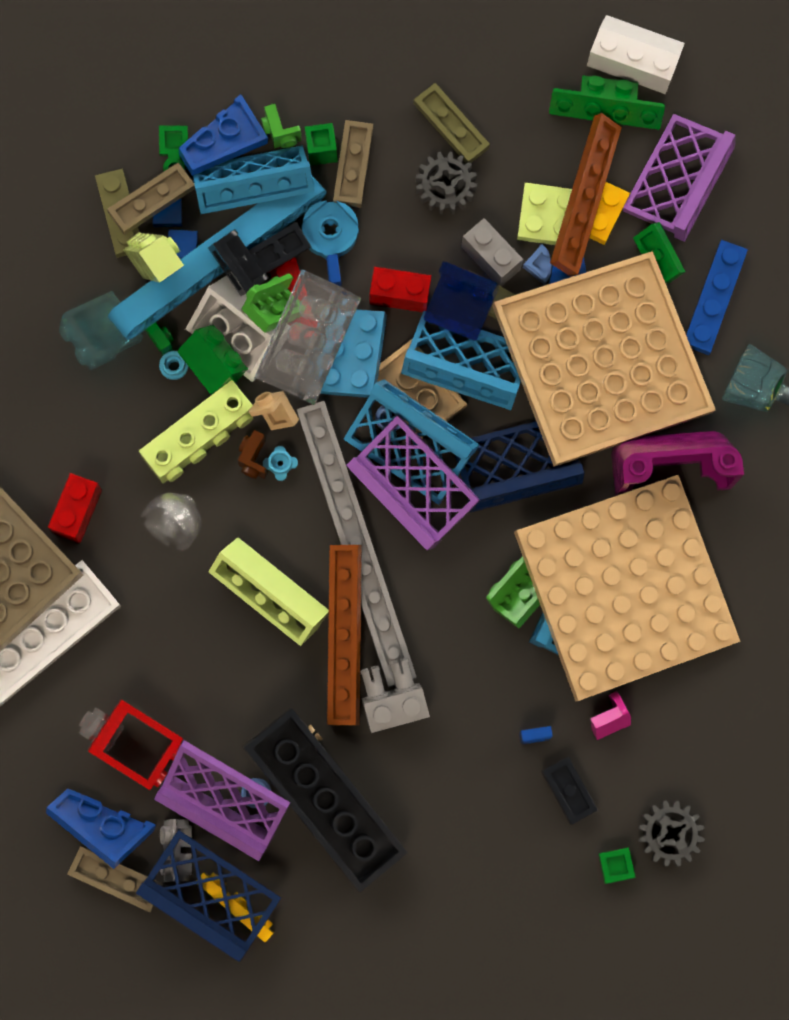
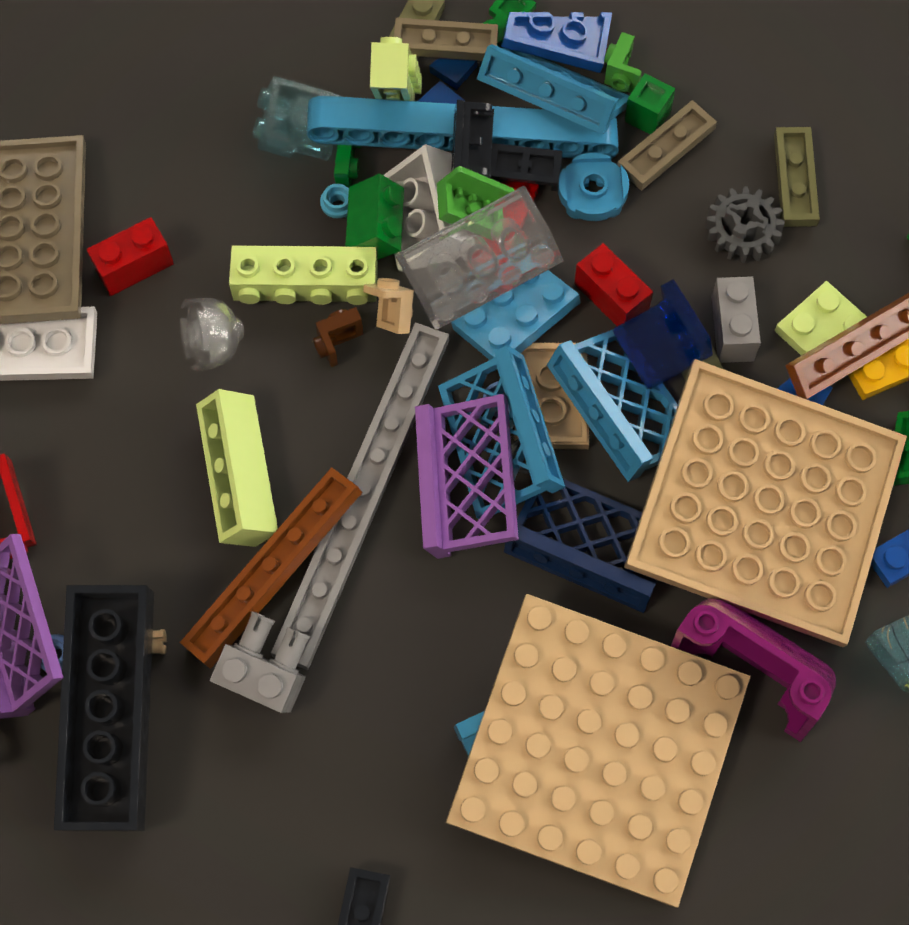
camera: 45 degrees right, 10 degrees down
(280, 455) = (357, 352): medium azure plate -> none
(333, 269) = (563, 224): blue tile -> none
(514, 595) = (474, 664): bright green bracket -> none
(535, 735) = (376, 825): blue tile -> none
(539, 264) = (774, 368): medium blue tile -> none
(611, 720) = (468, 875): dark pink tile -> none

